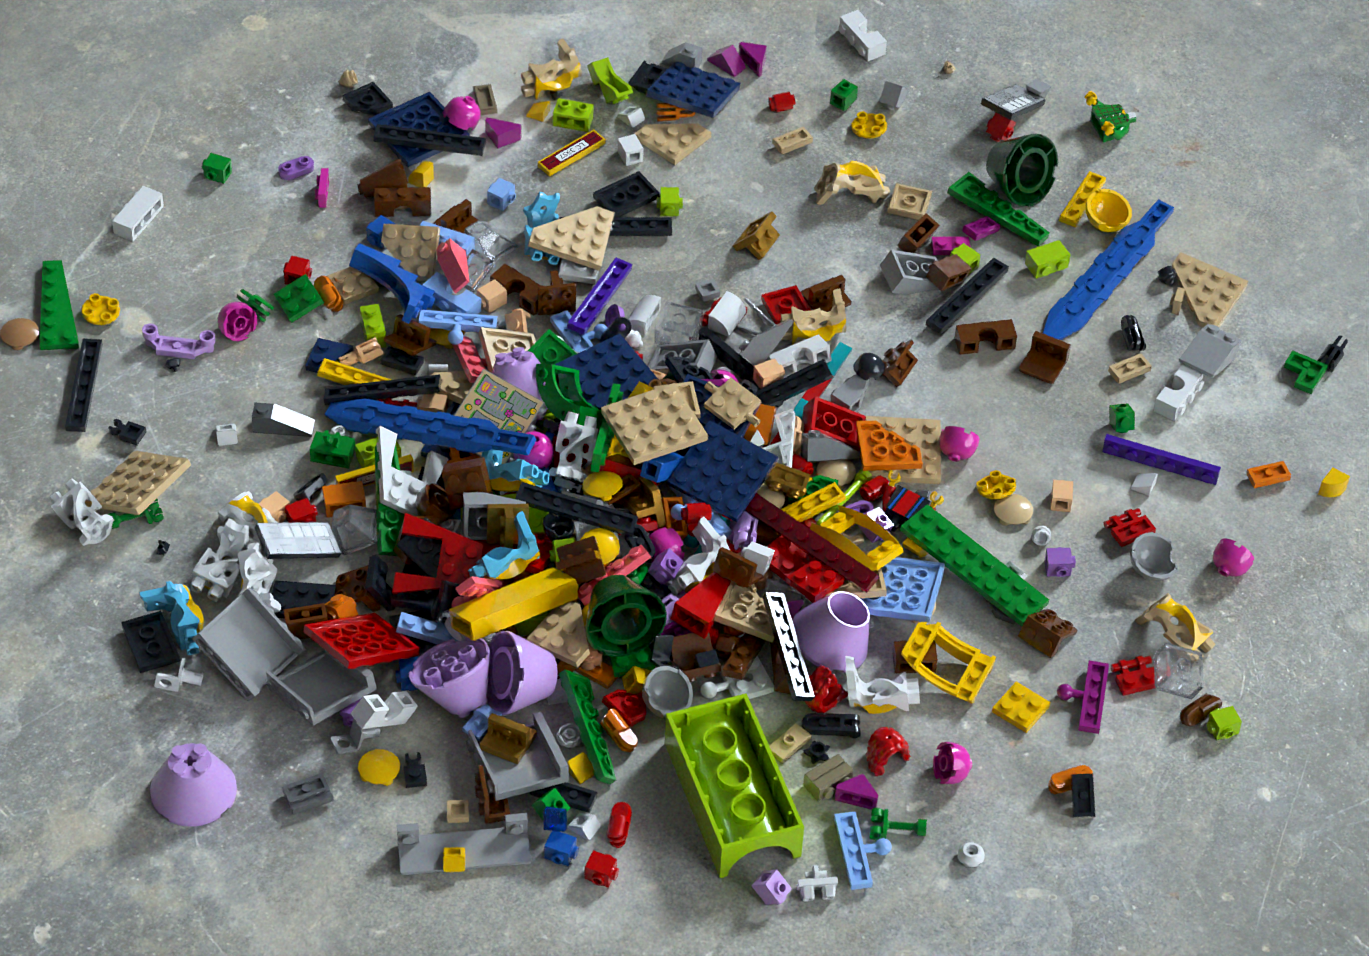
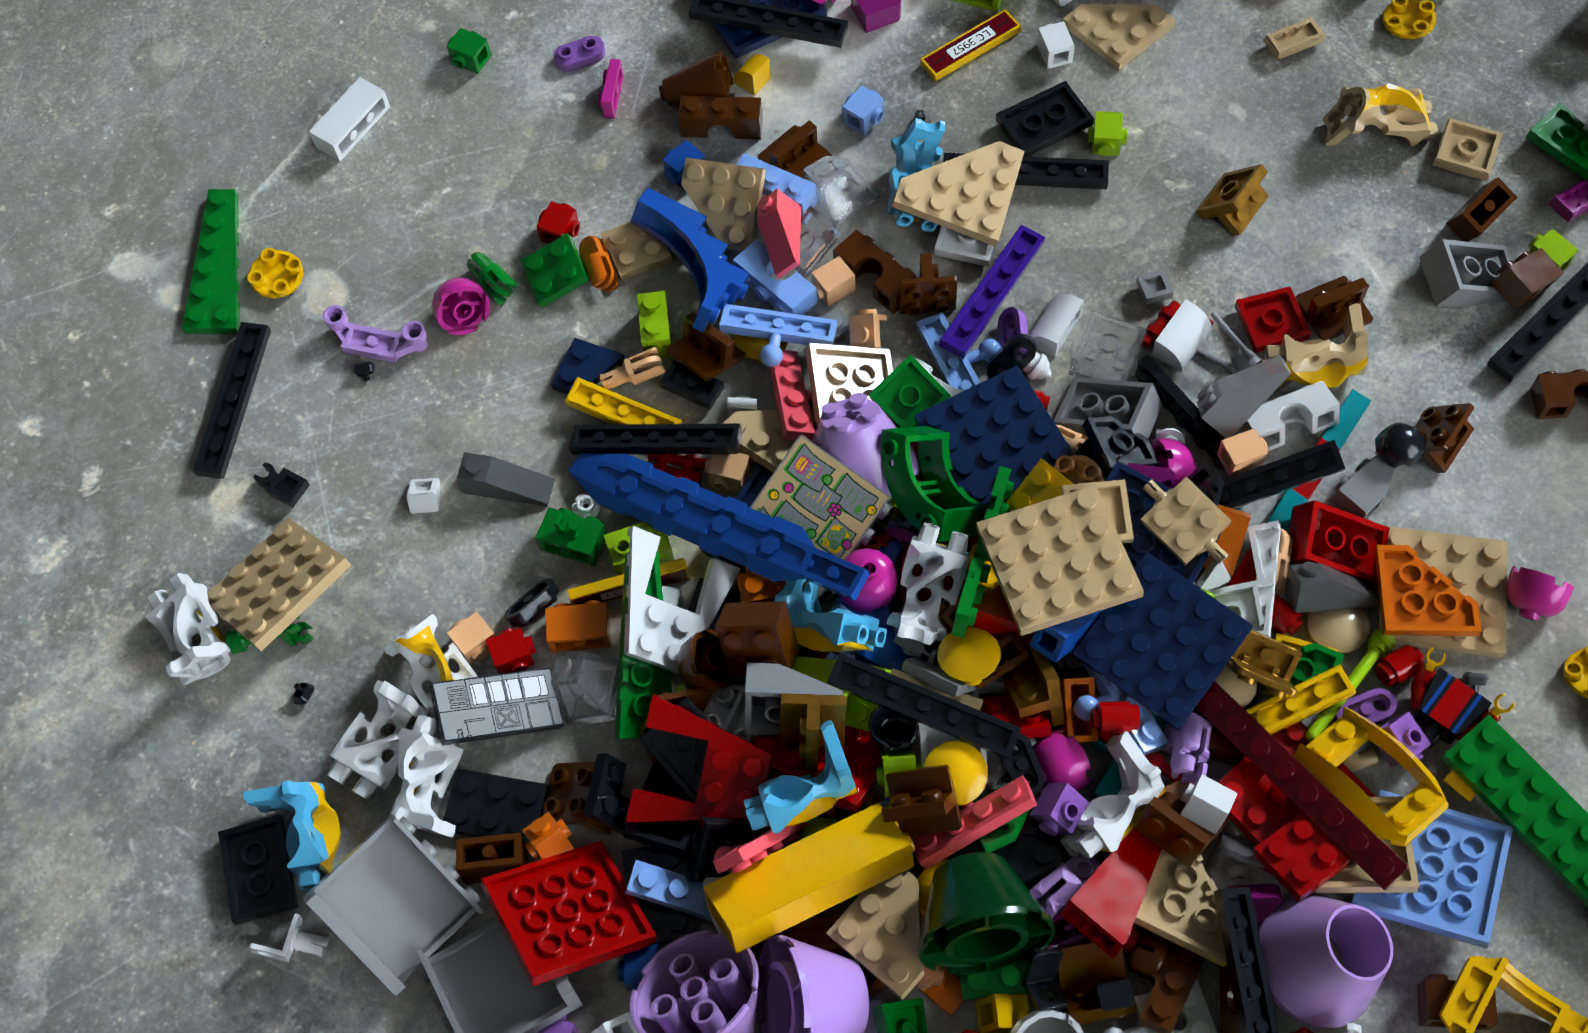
camera: 15 degrees right, 15 degrees up
(19, 333) = (159, 305): medium nougat dish -> none
(945, 245) = (1525, 225): dark pink plate -> none

